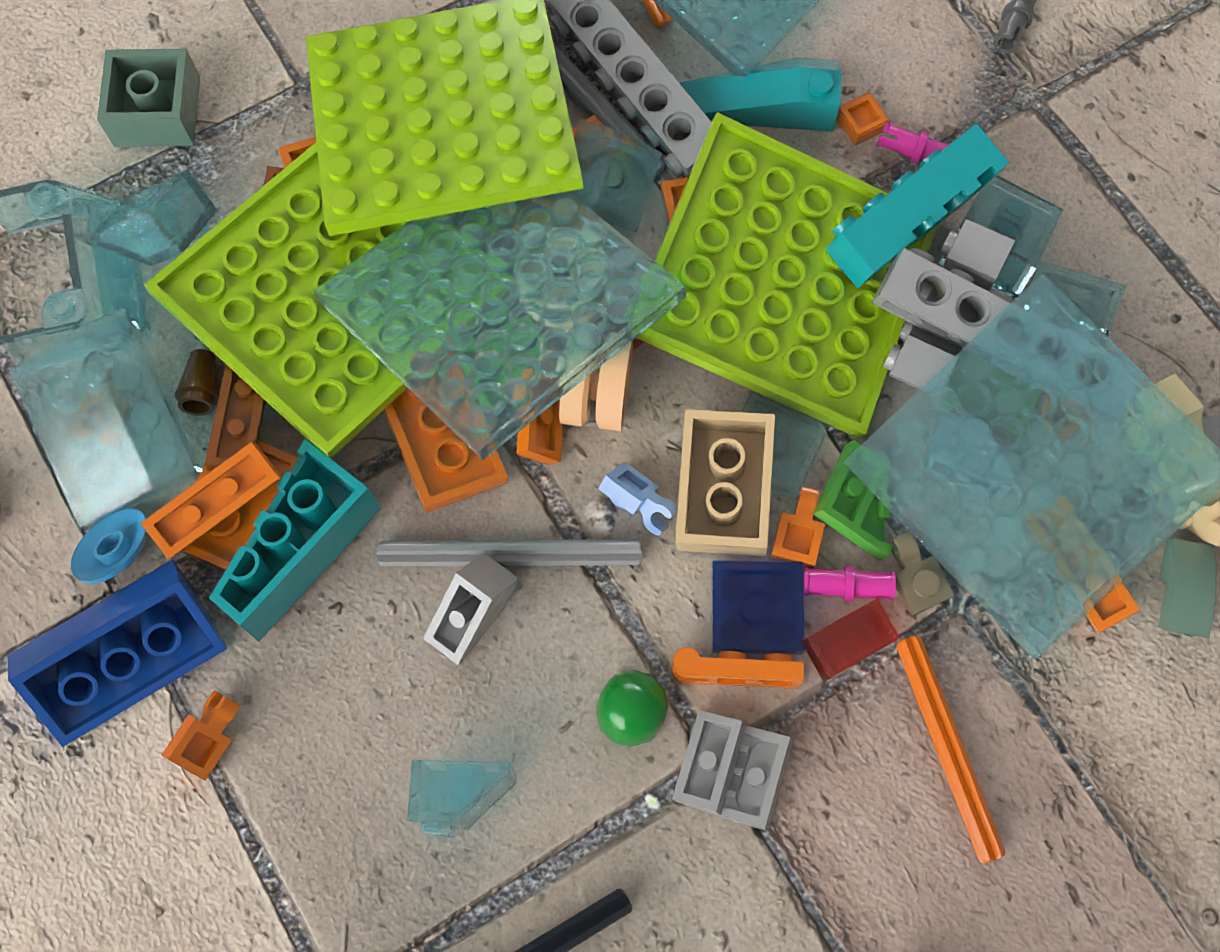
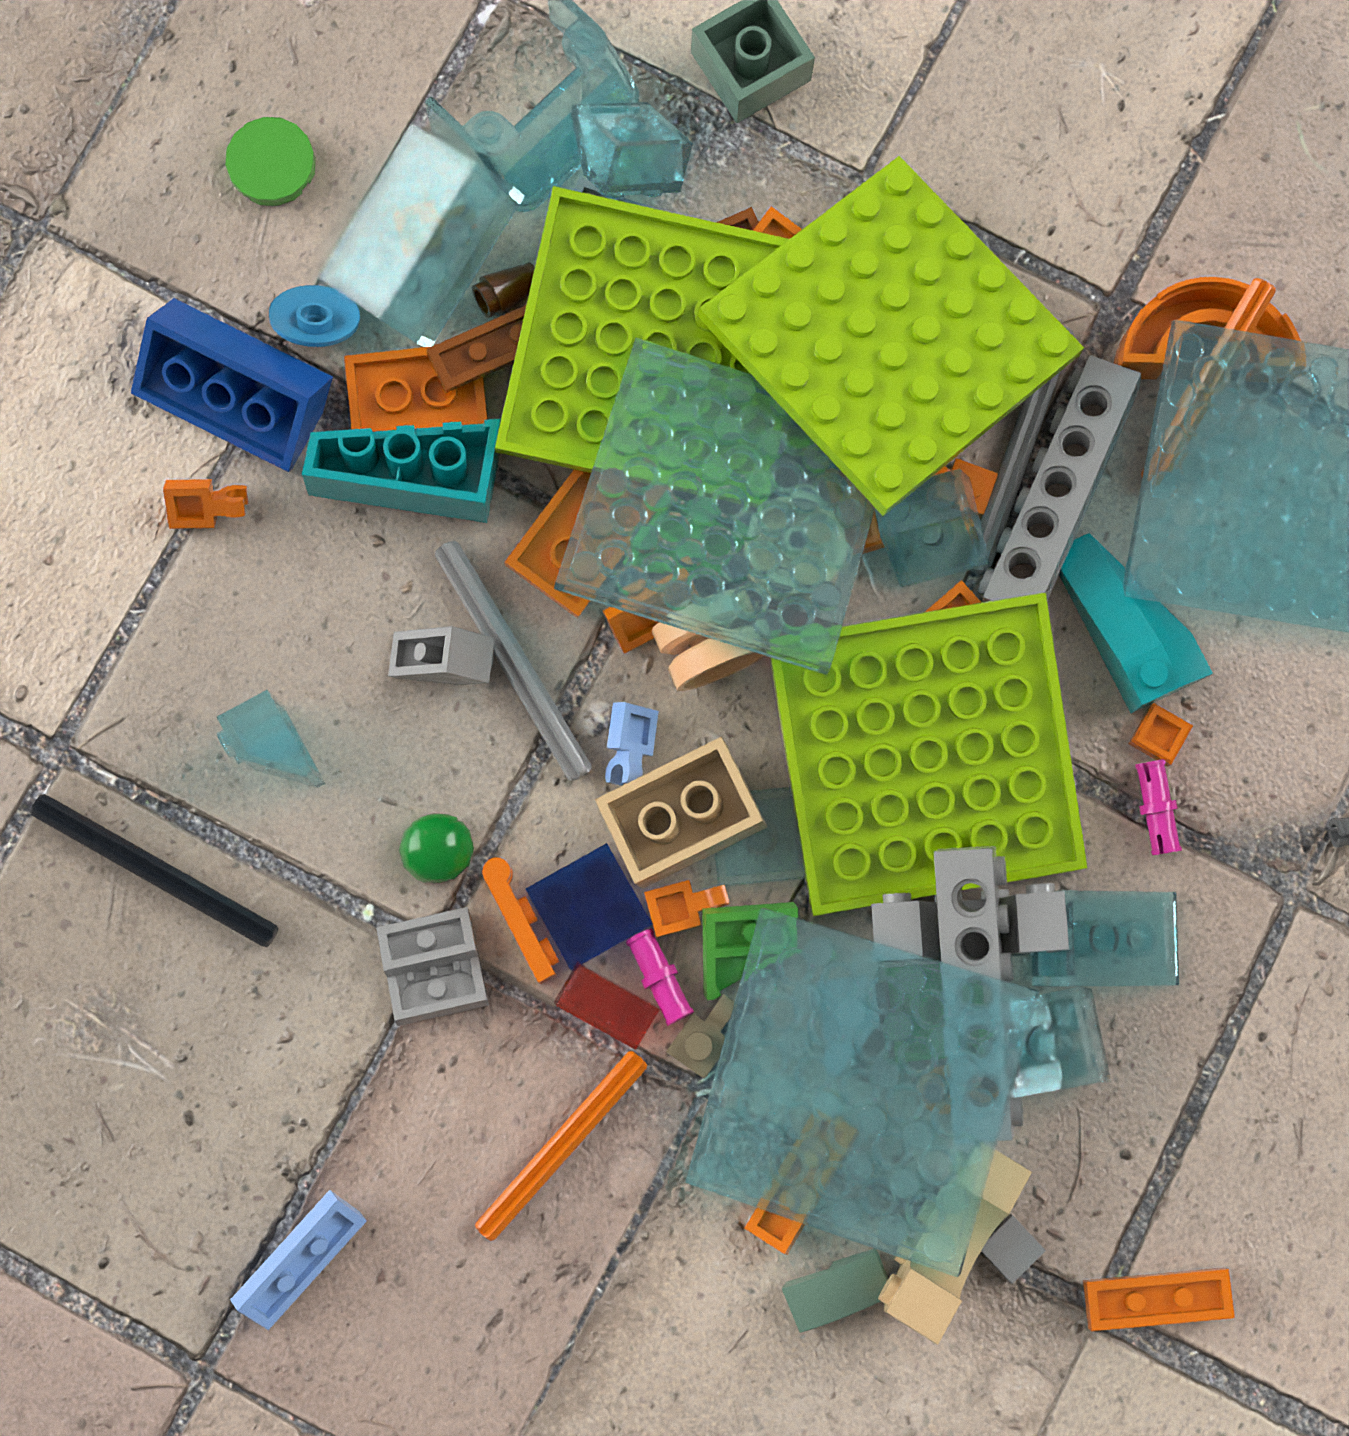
camera: 55 degrees right, 10 degrees up
(211, 500) = (398, 376): orange plate -> none
(915, 205) = (1064, 835): teal wedge -> none

